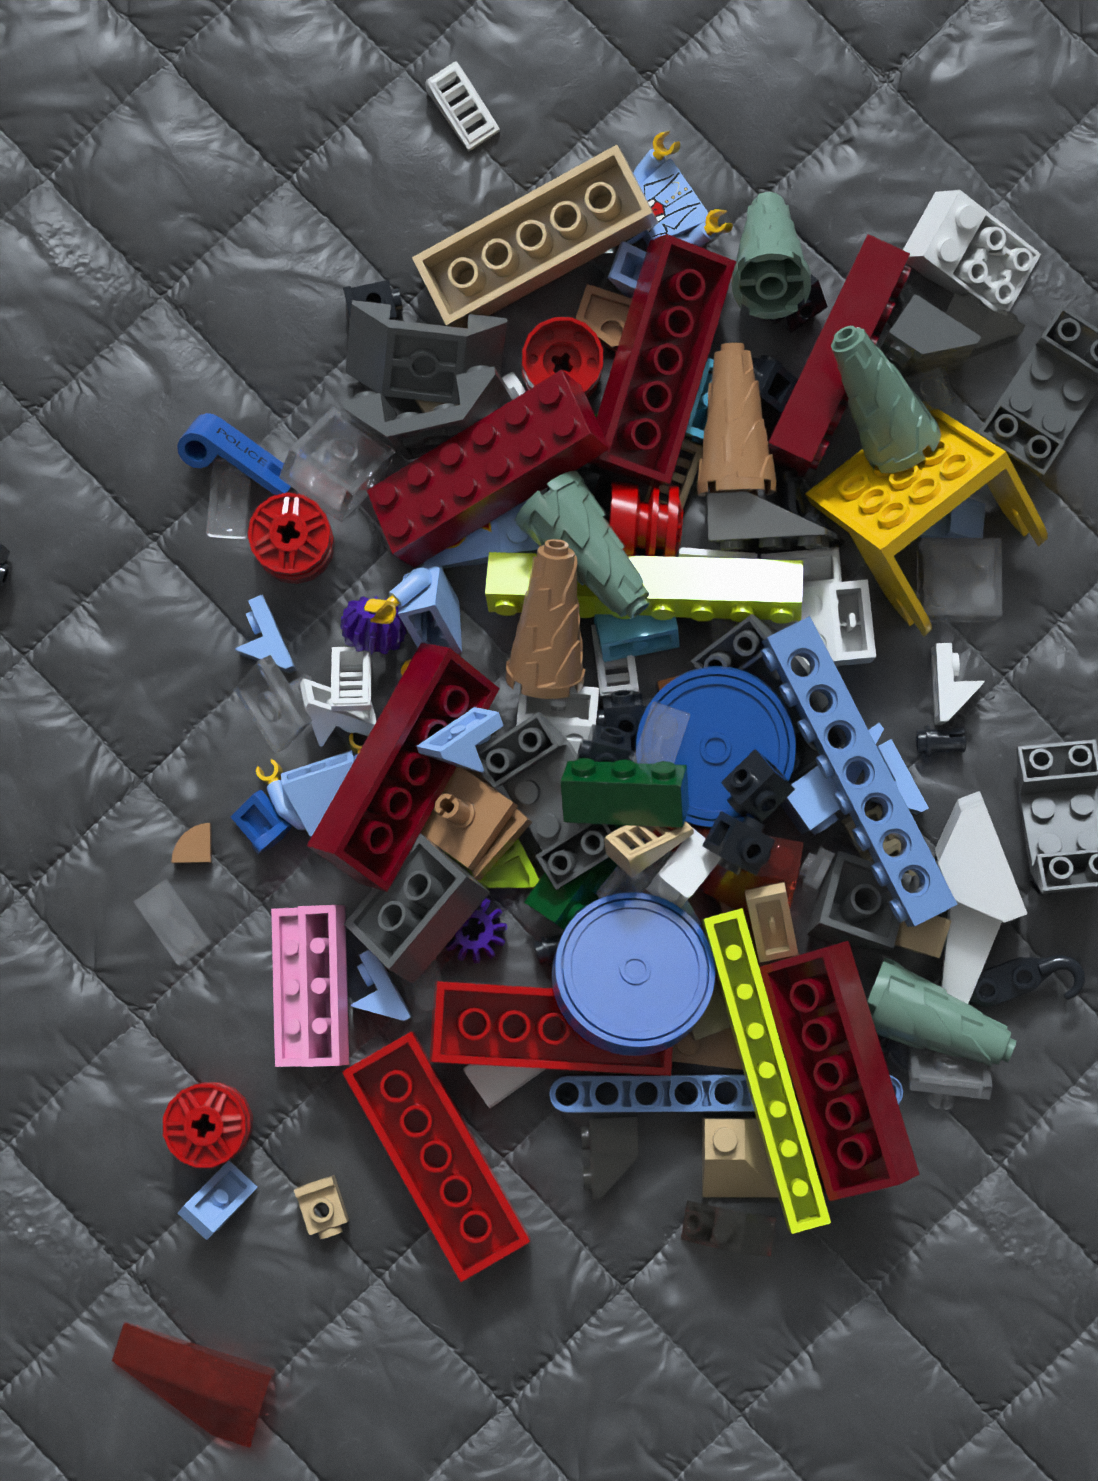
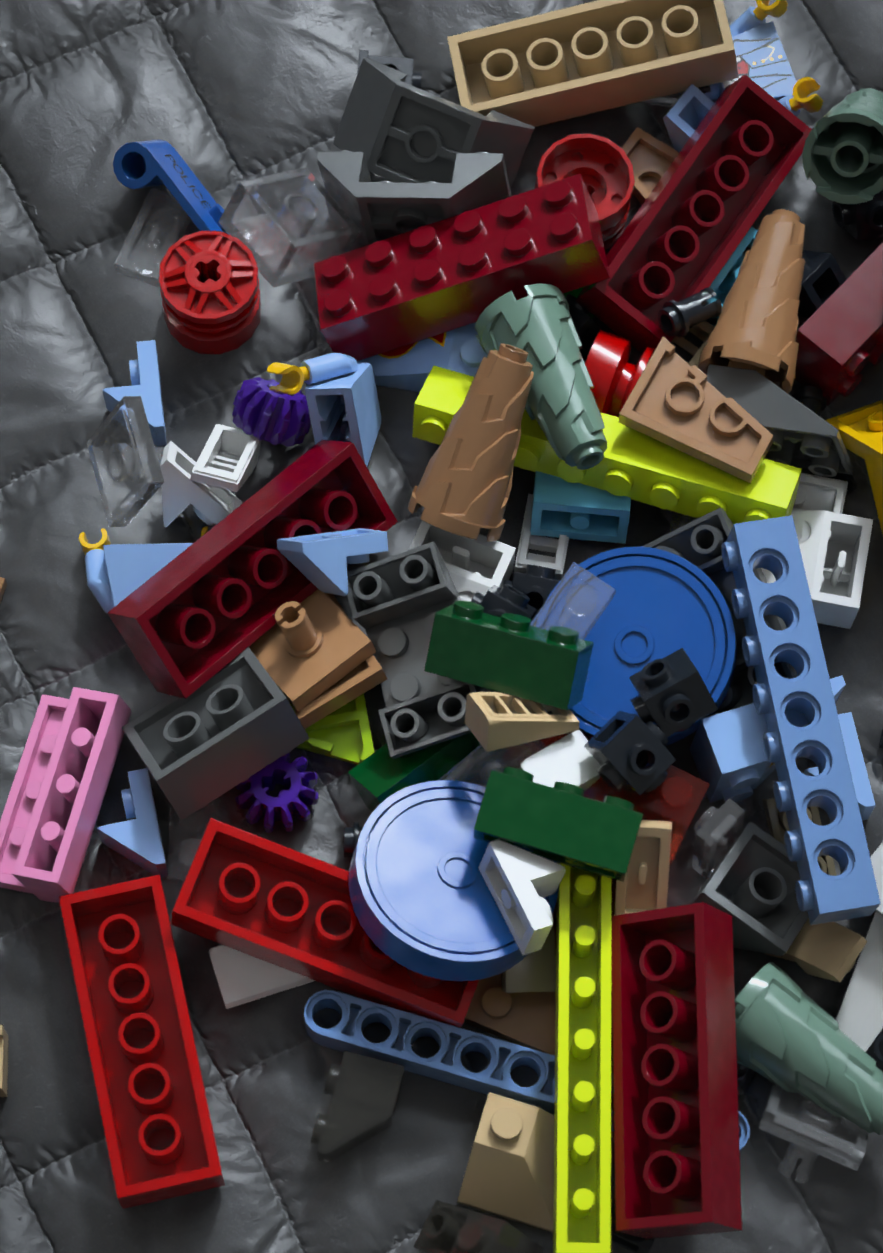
camera: 15 degrees right, 15 degrees down
(261, 822) = (65, 595): blue tile -> none
(678, 455) = (680, 316): none -> black pin
(681, 970) = (519, 887): none -> white slope
(702, 917) = (558, 823): none -> dark green brick
(707, 546) = (691, 415): none -> medium nougat wing

